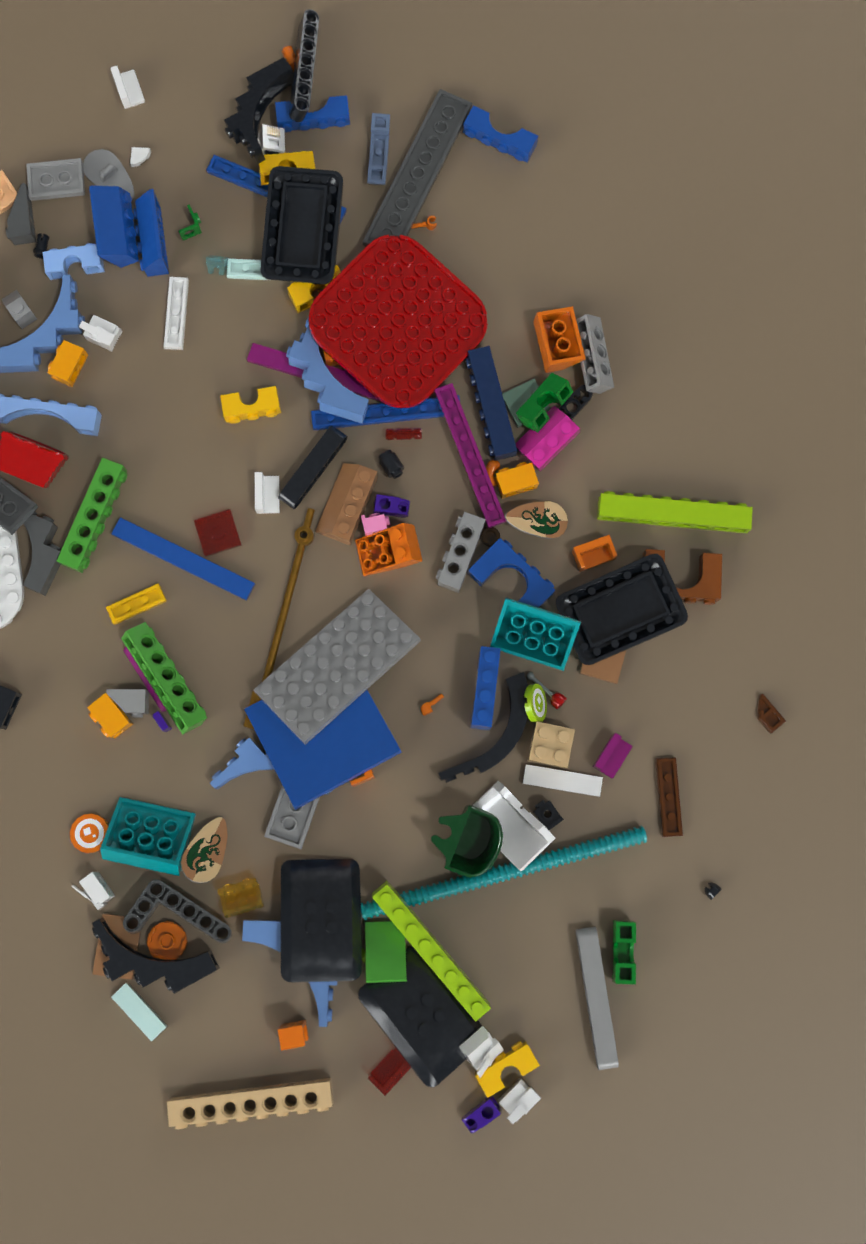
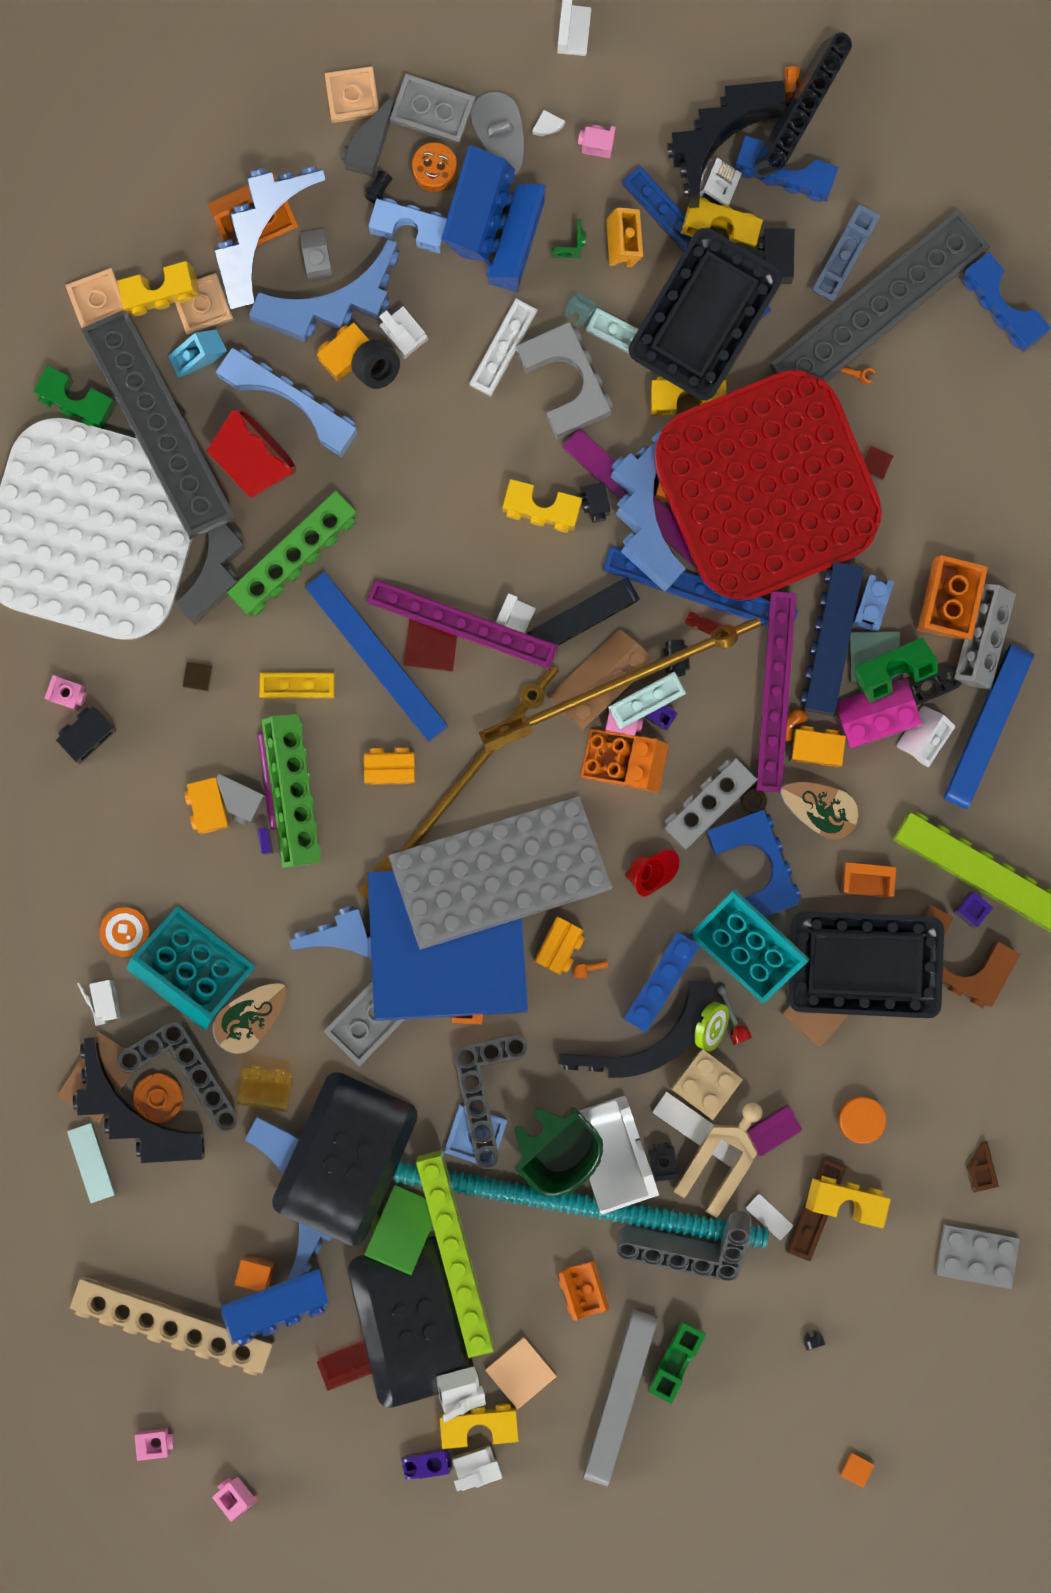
camera: 25 degrees right, 5 degrees up
(63, 630) = (197, 676): none -> dark brown tile
(74, 216) = (434, 167): none -> orange head
(101, 360) = (367, 355): none -> black tyre
(177, 151) = (597, 141): none -> bright pink brick
(217, 293) = (564, 346): none -> light grey arch
(224, 204) = (624, 236): none -> light orange brick
(226, 630) = (389, 767): none -> light orange brick
(232, 507) = (462, 624): none -> magenta tile
(273, 1204) = (146, 1450): none -> bright pink brick
(286, 385) = (596, 502): none -> black brick
(305, 556) = (520, 725): none -> pearl gold bar
(318, 1053) = (275, 1307): none -> blue slope
(332, 161) = (779, 250): none -> black brick
(353, 1209) = (234, 1498): none -> bright pink brick
(384, 500) = (647, 700): none -> light aqua tile
(395, 828) = (479, 1093): none -> dark grey beam
(402, 698) = (559, 946): none -> light orange brick
(406, 860) = (459, 1140): none -> light blue tile
(444, 615) = (653, 872): none -> red piece
(466, 275) = (877, 462): none -> clear red tile
(507, 367) = (872, 603): none -> medium blue brick
(518, 1014) = (520, 1372): none -> light nougat tile
(534, 933) = (583, 1290): none -> orange bracket
(587, 771) = (737, 1137): none -> tan piece
(588, 440) = (927, 740): none -> white panel
(596, 871) = (687, 1254): none -> dark grey beam
(625, 413) = (988, 726): none -> blue beam
(639, 818) = (769, 1217): none -> white sticker
(670, 719) = (862, 1119): none -> orange head
(673, 783) = (827, 1196): none -> yellow arch
(675, 539) = (973, 909): none -> dark purple panel
(787, 968) = (857, 1469): none -> orange tile
(795, 776) = (977, 1256): none -> light grey plate

